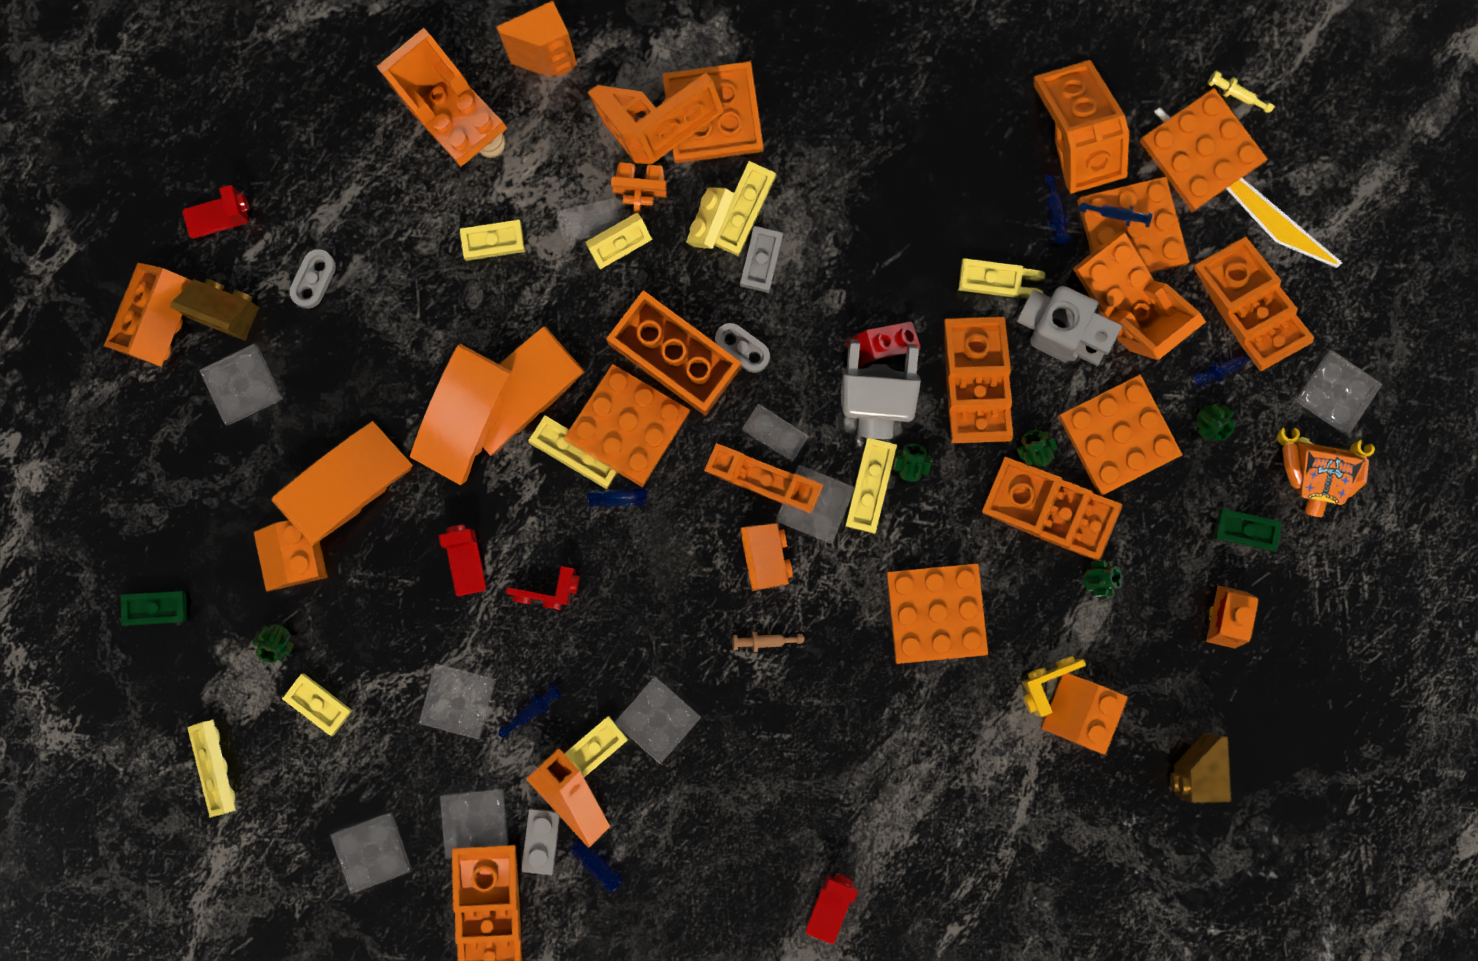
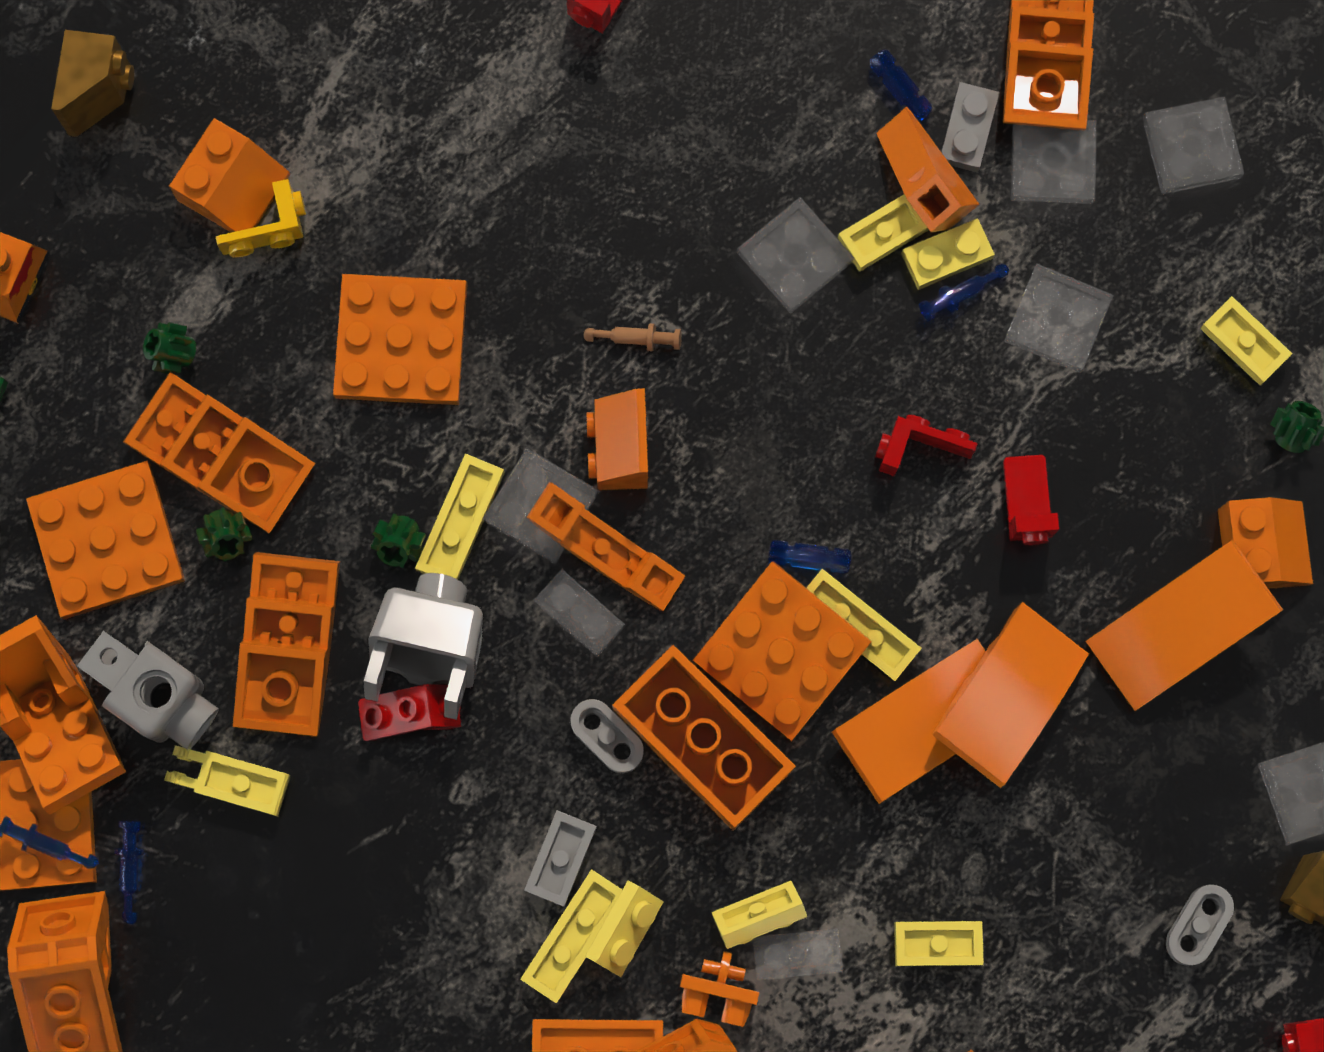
camera: 170 degrees left, 5 degrees down
(545, 739) = (947, 254): none -> light yellow plate

